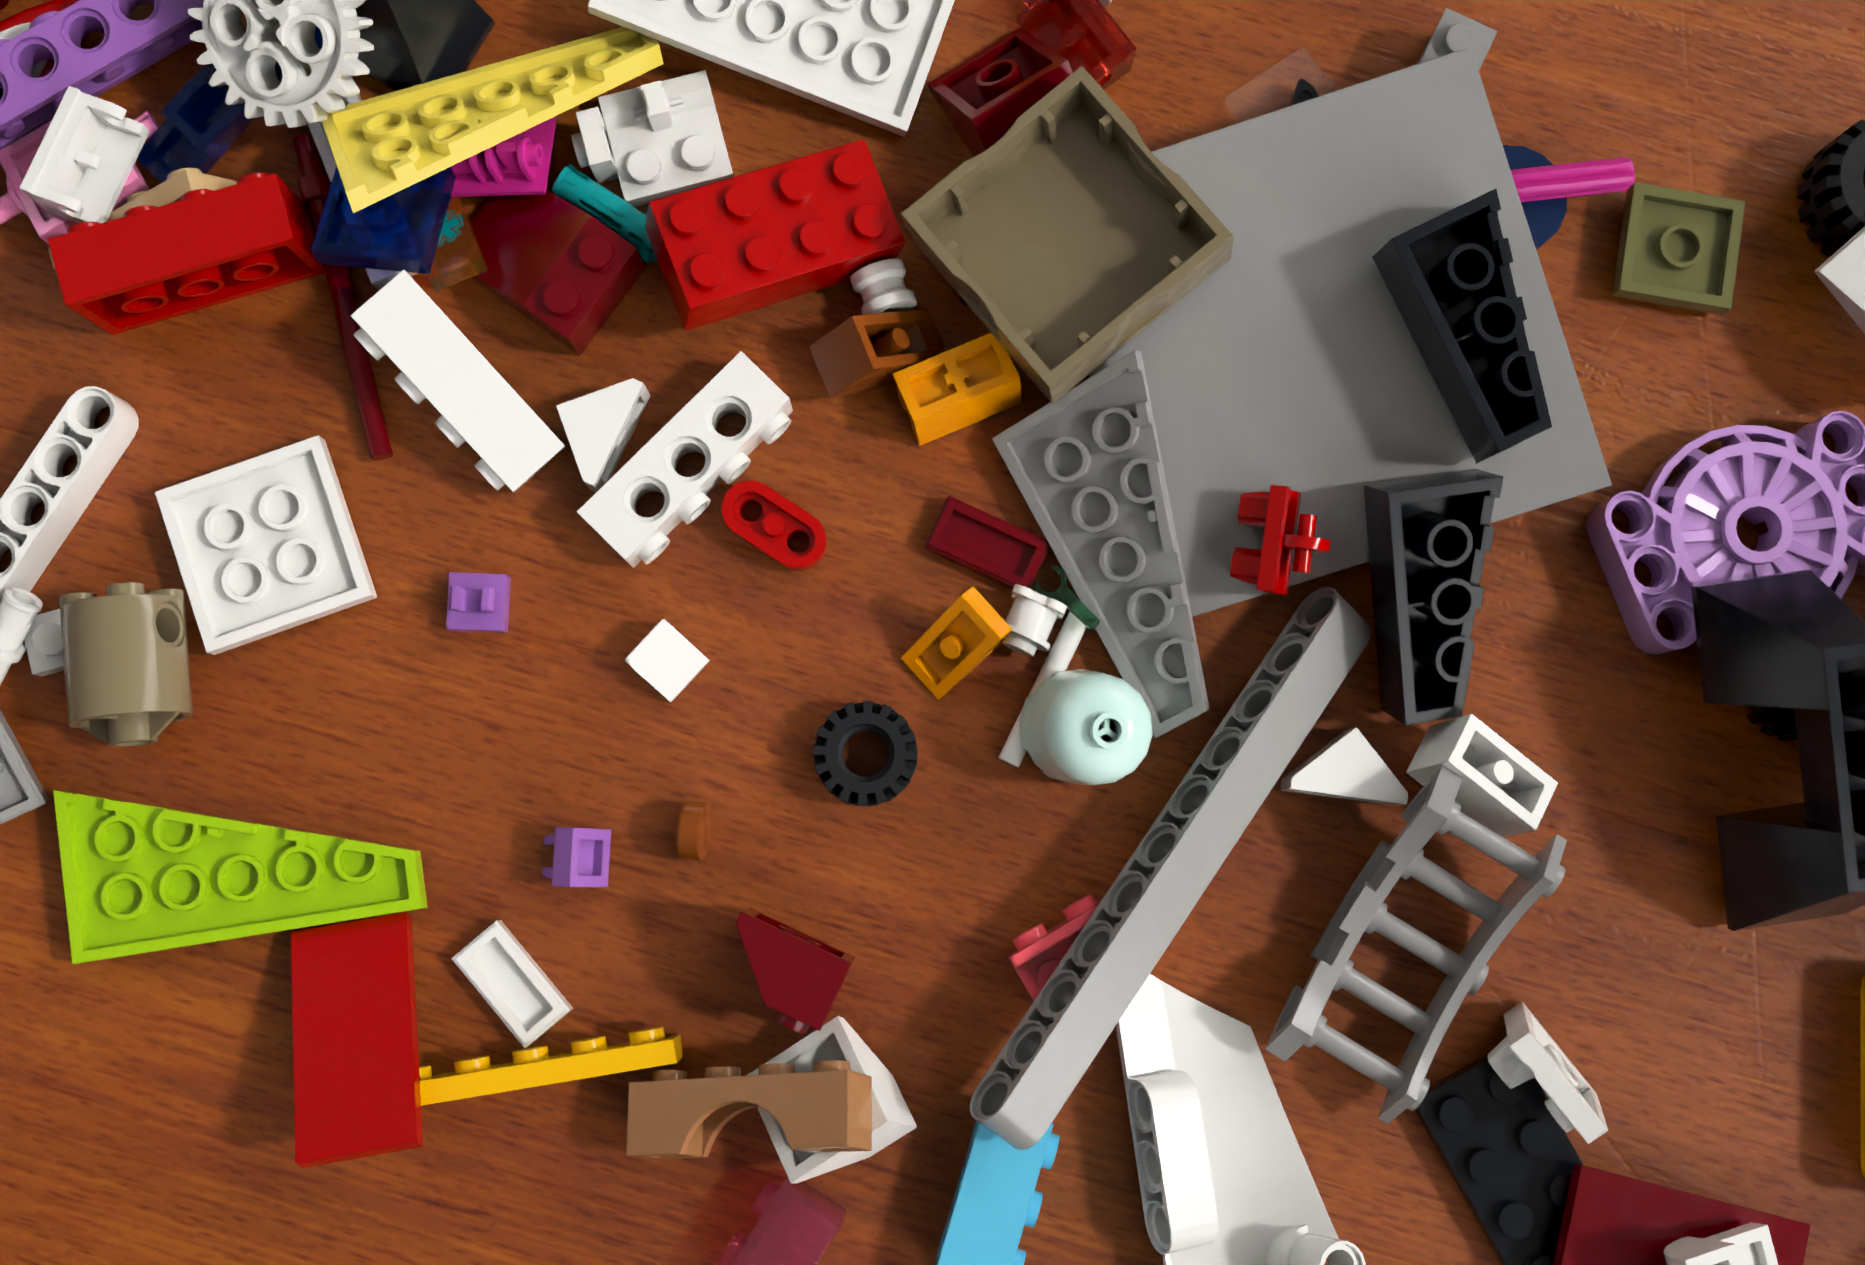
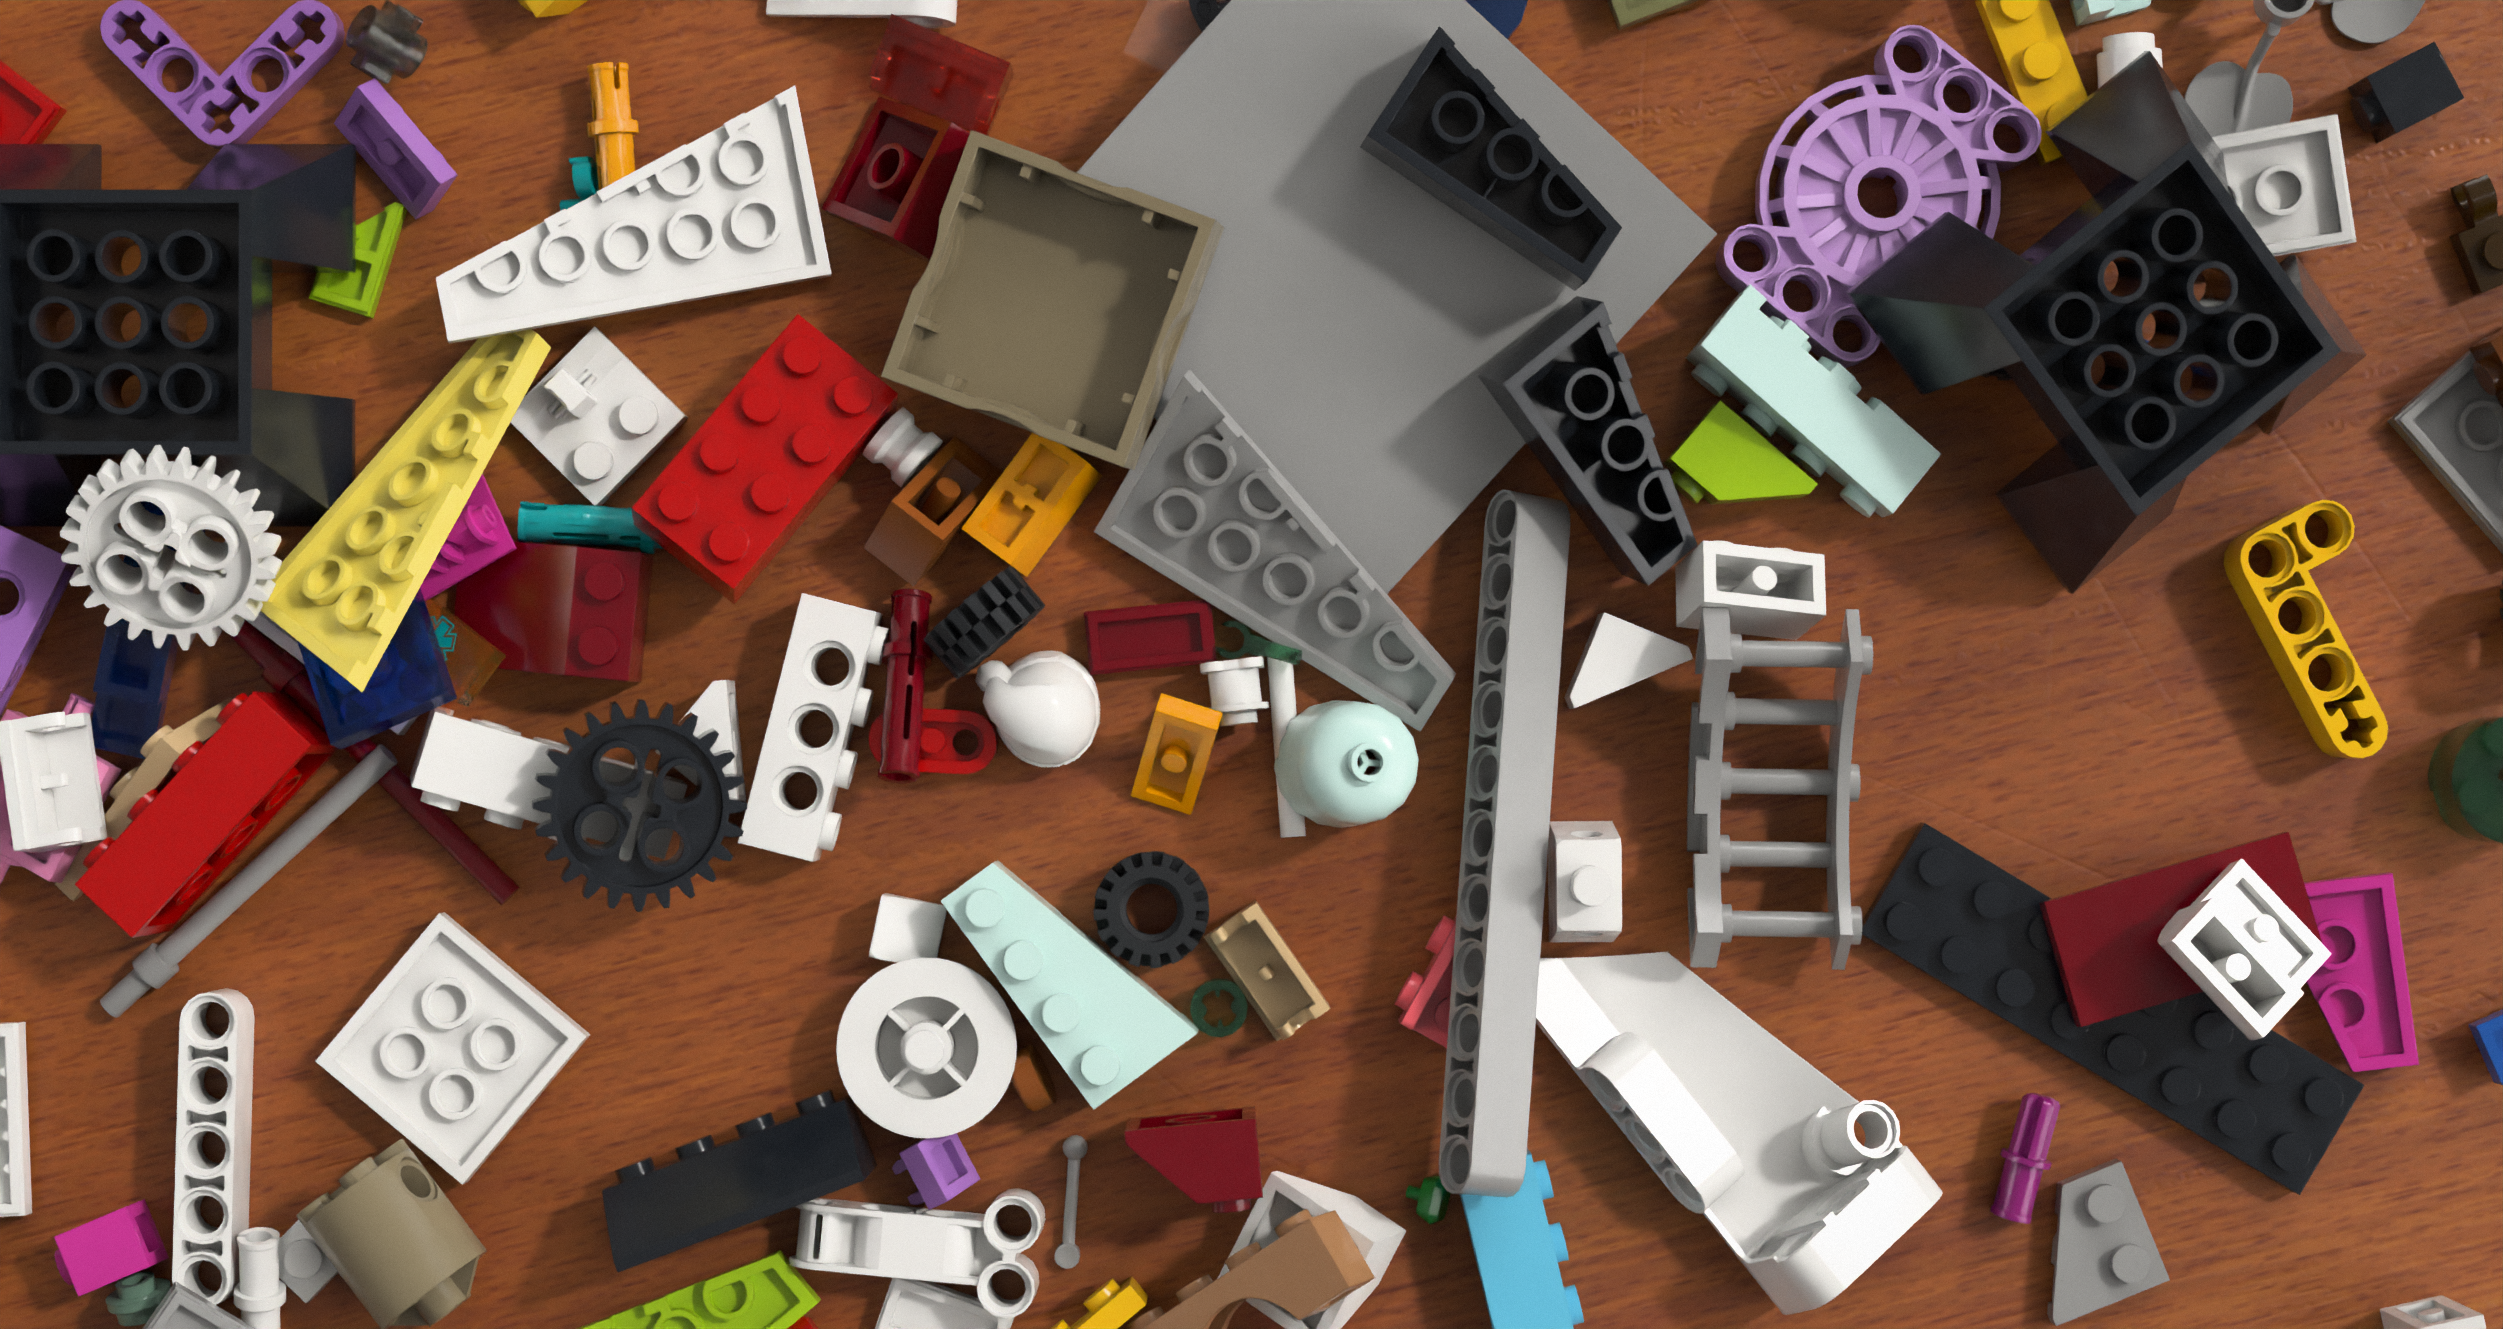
camera: 30 degrees left, 5 degrees up
(88, 351) = (160, 962): none -> light grey bar
(416, 773) = (737, 1180): none -> black slope
(478, 602) = (691, 982): medium lavender tile -> none
(480, 394) = (581, 790): none -> black gear
(531, 911) = (922, 1244): none -> white piece
(593, 145) = (531, 469): white plate -> none
(626, 757) = (926, 1047): none -> white wheel
(641, 985) = (1067, 1252): none -> light grey hinge
(765, 780) = (1075, 995): none -> light aqua wedge
(790, 450) = (906, 663): none -> dark red pin
(856, 854) = (1199, 1008): none -> clear green bush
(867, 454) = (984, 622): none -> black tyre
(873, 548) = (1042, 706): none -> white piece
(926, 855) = (1267, 971): none -> tan hinge
(951, 1113) = (1431, 1199): none -> green rock
(1218, 934) = (1584, 881): none -> white torso
(1278, 514) = (1435, 475): red hips -> none
(1523, 675) = (1733, 463): none -> lime slope
(1533, 1053) = (1950, 823): white hinge -> none
(1609, 661) = (1811, 406): none -> light aqua wedge

